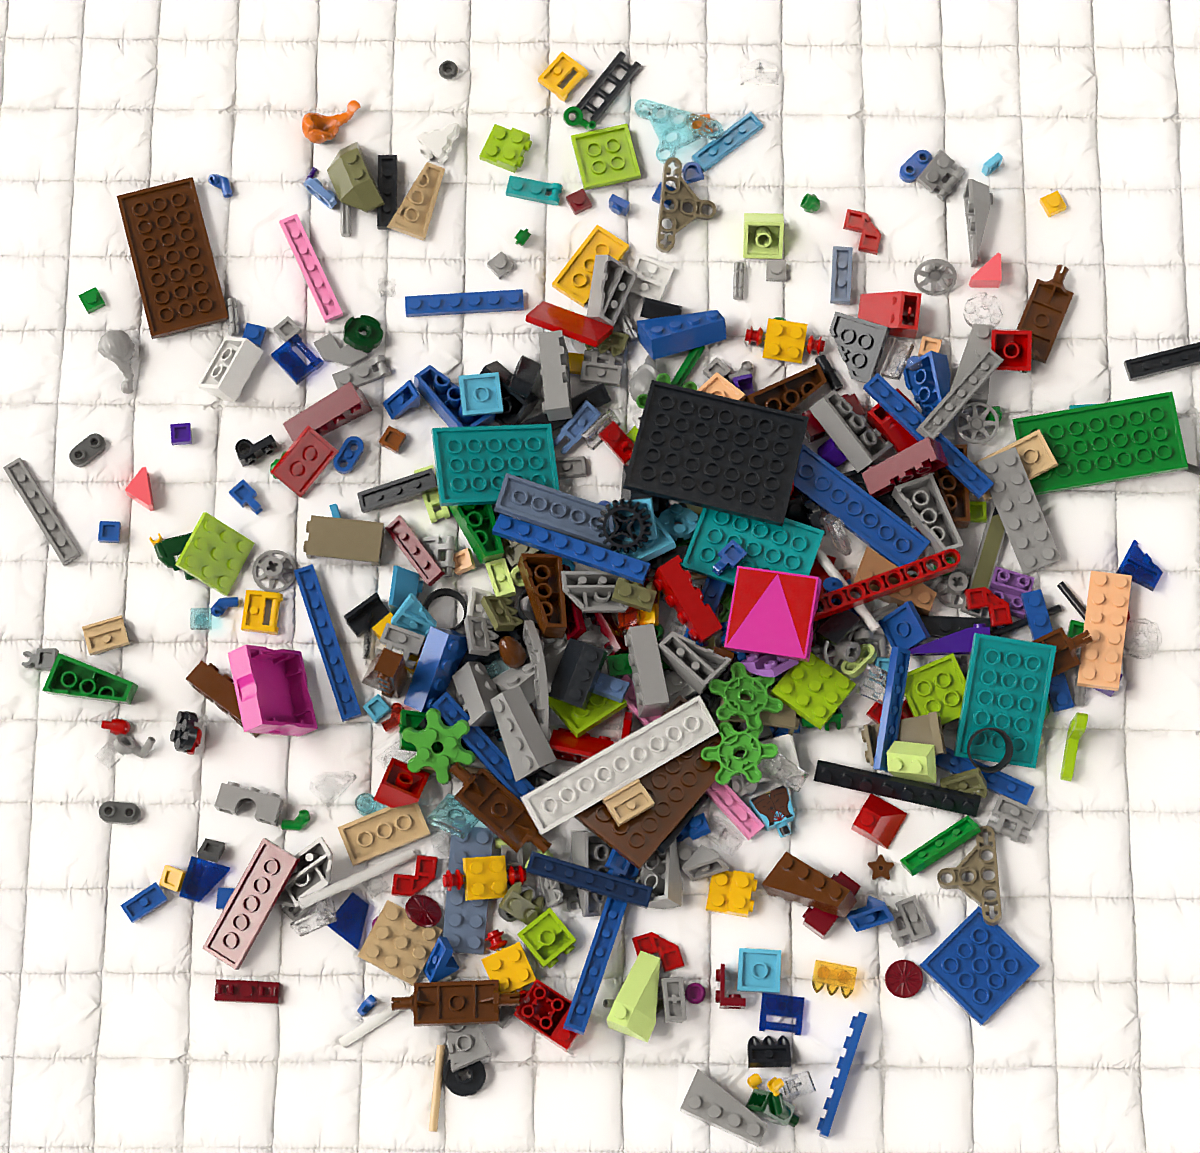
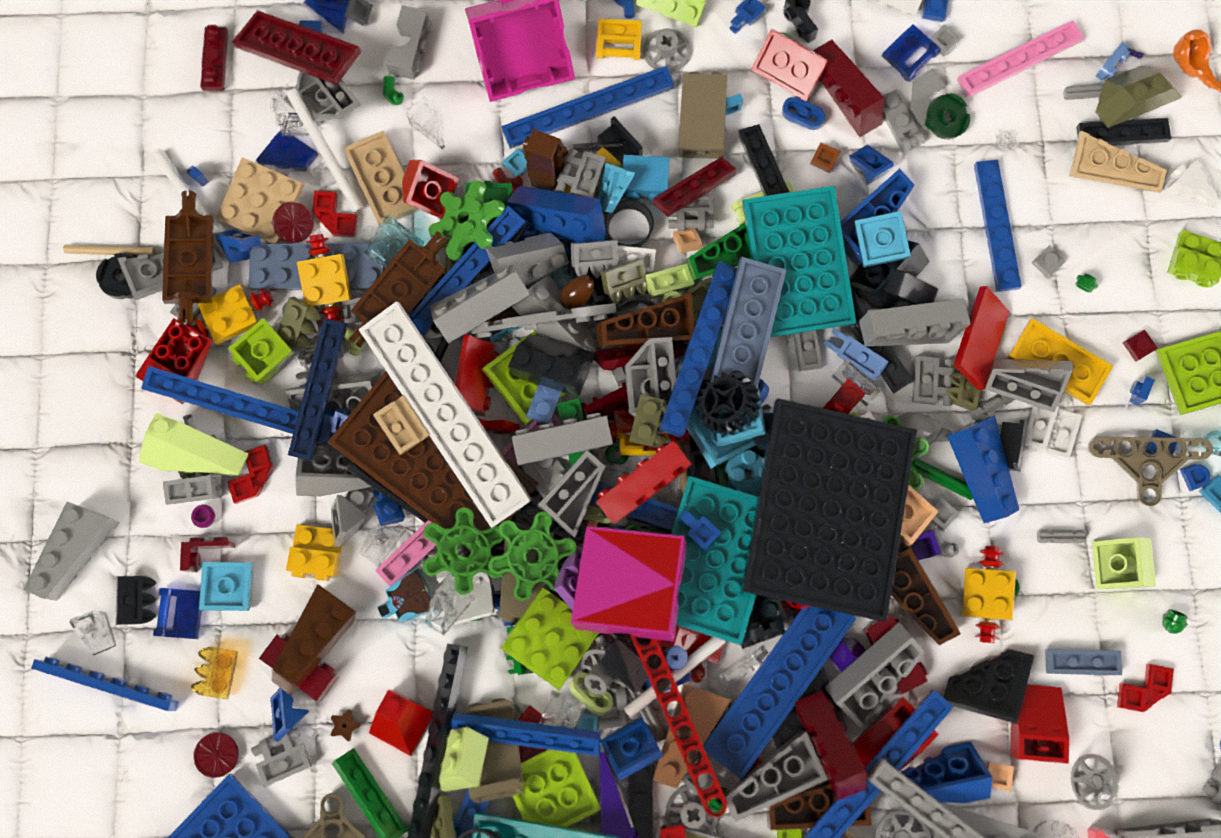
camera: 90 degrees right, 5 degrees up
(364, 800) = (408, 152): clear light blue wheel -> none
(533, 190) = (1147, 293): teal plate -> none
(575, 362) = (938, 350): yellow tile -> none
(771, 1105) = (67, 599): dark green torso -> none
(776, 270) = (1080, 581): light grey plate -> none
(830, 375) = (952, 649): black axle -> none
(898, 359) = (980, 738): clear plate -> none

